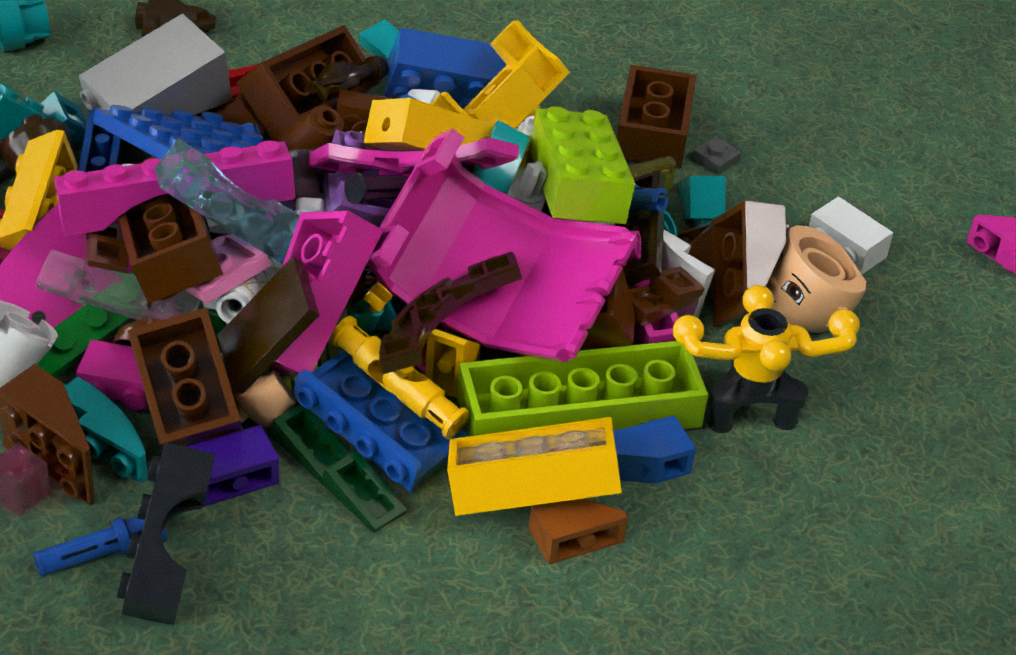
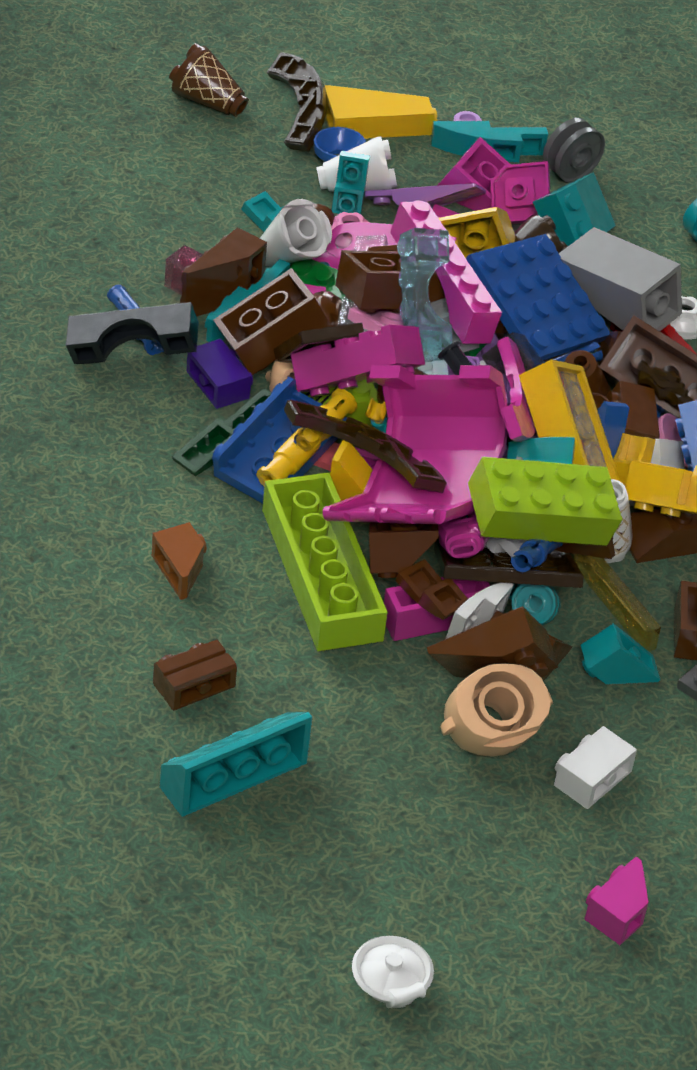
camera: 85 degrees right, 0 degrees up
(533, 466) = (220, 515): yellow brick -> none
(654, 451) = (273, 608): blue slope -> none
(759, 355) = (353, 650): wheel -> none
(763, 528) = (194, 674): none -> reddish brown brick
(901, 493) = (237, 762): none -> teal slope

